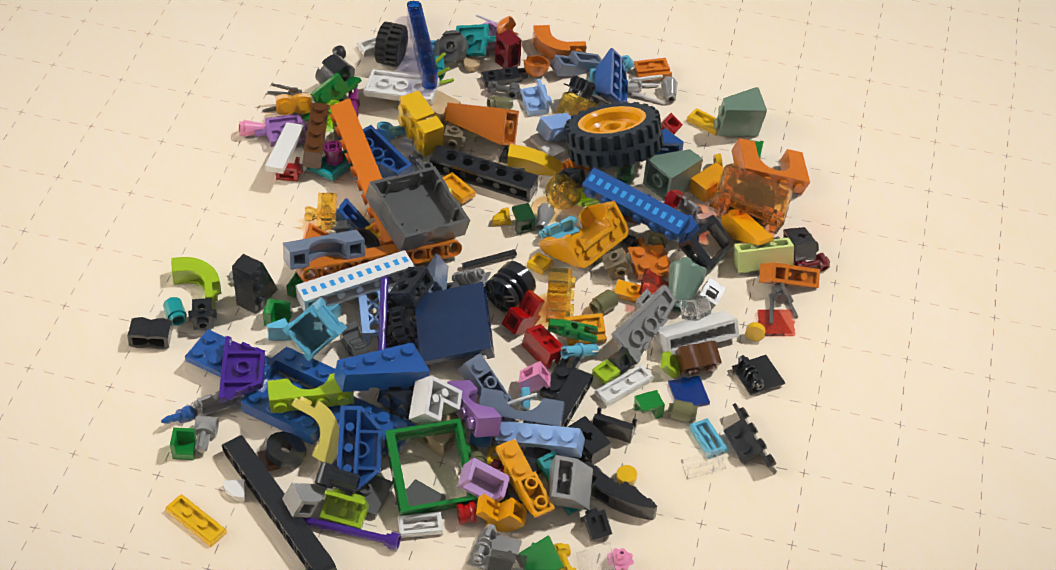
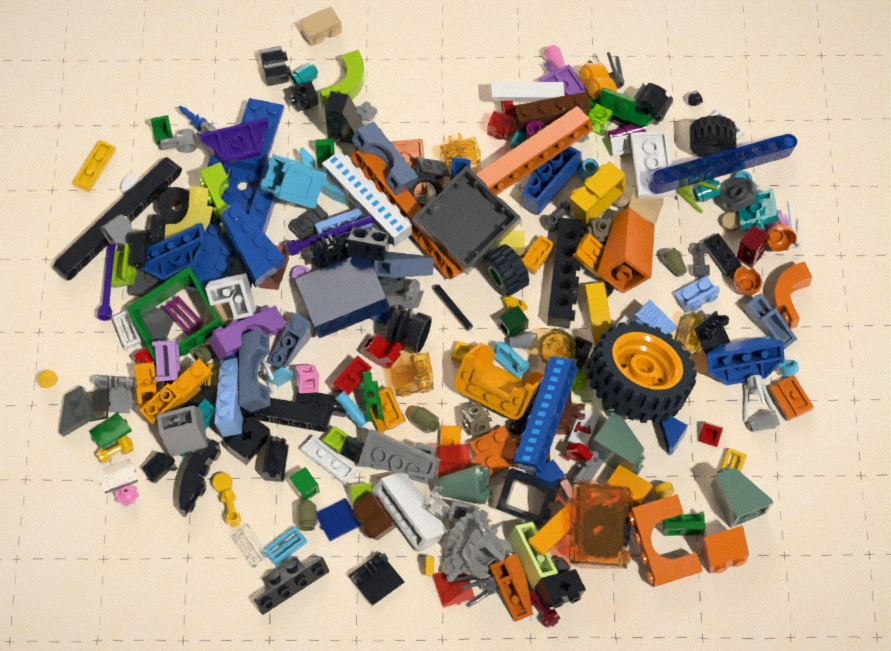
camera: 80 degrees right, 15 degrees up
(122, 286) = (321, 25): none -> tan brick
(305, 468) = (157, 227): none -> black hinge
(308, 180) = (501, 126): none -> clear red brick
(365, 108) = (620, 144): none -> white tile
(420, 468) = (172, 304): none -> magenta tile
(477, 147) = (590, 253): none -> light orange plate
(477, 201) = (506, 270): none -> black wheel
(670, 473) = (233, 517): none -> yellow bar
(751, 289) = (474, 546): none -> light grey piece
(783, 134) = (725, 550): none -> orange slope

